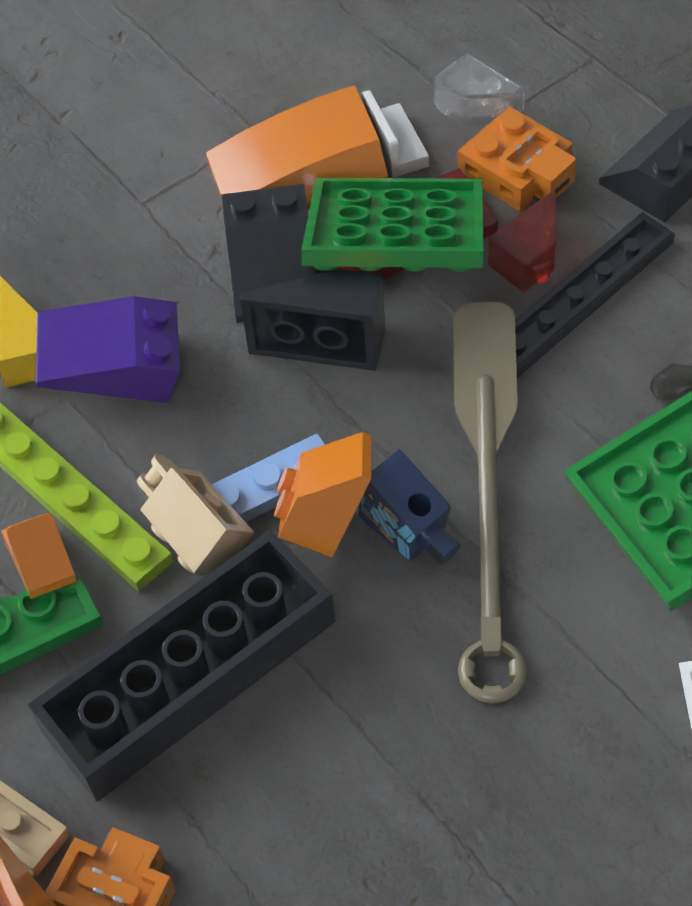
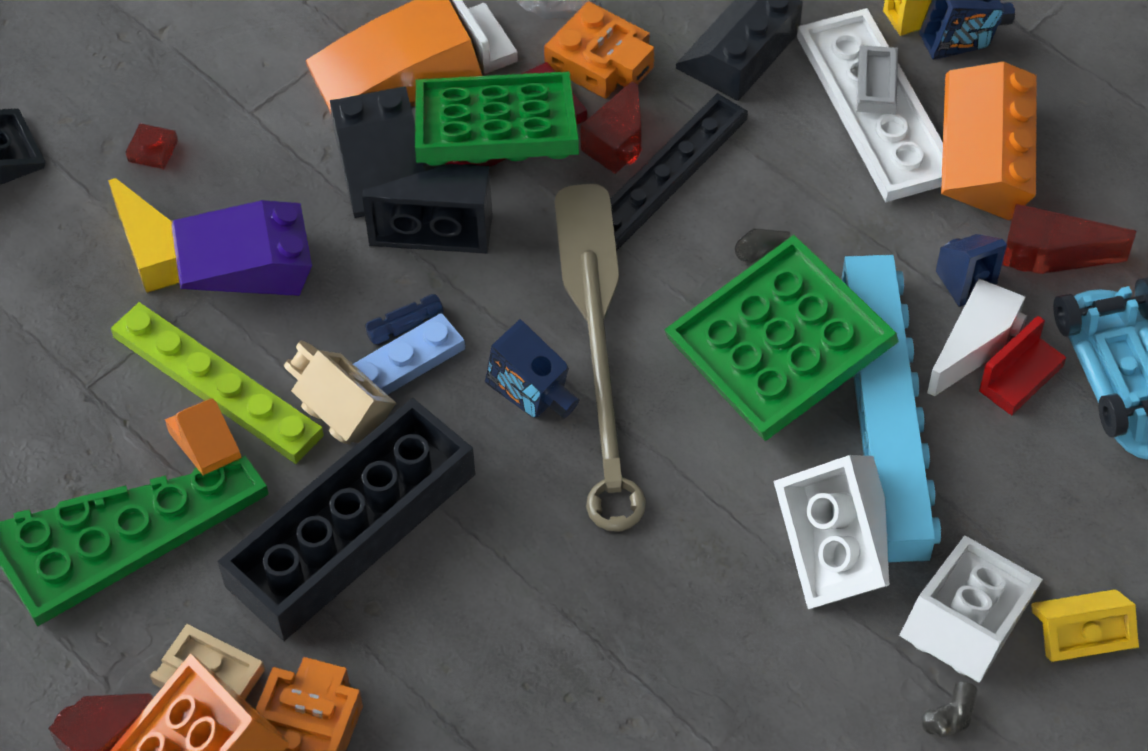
camera: 10 degrees left, 0 degrees up
(34, 232) = (151, 146): none -> clear red plate
(275, 437) = (403, 319): none -> dark blue axle
(324, 493) = (456, 362): orange slope -> none

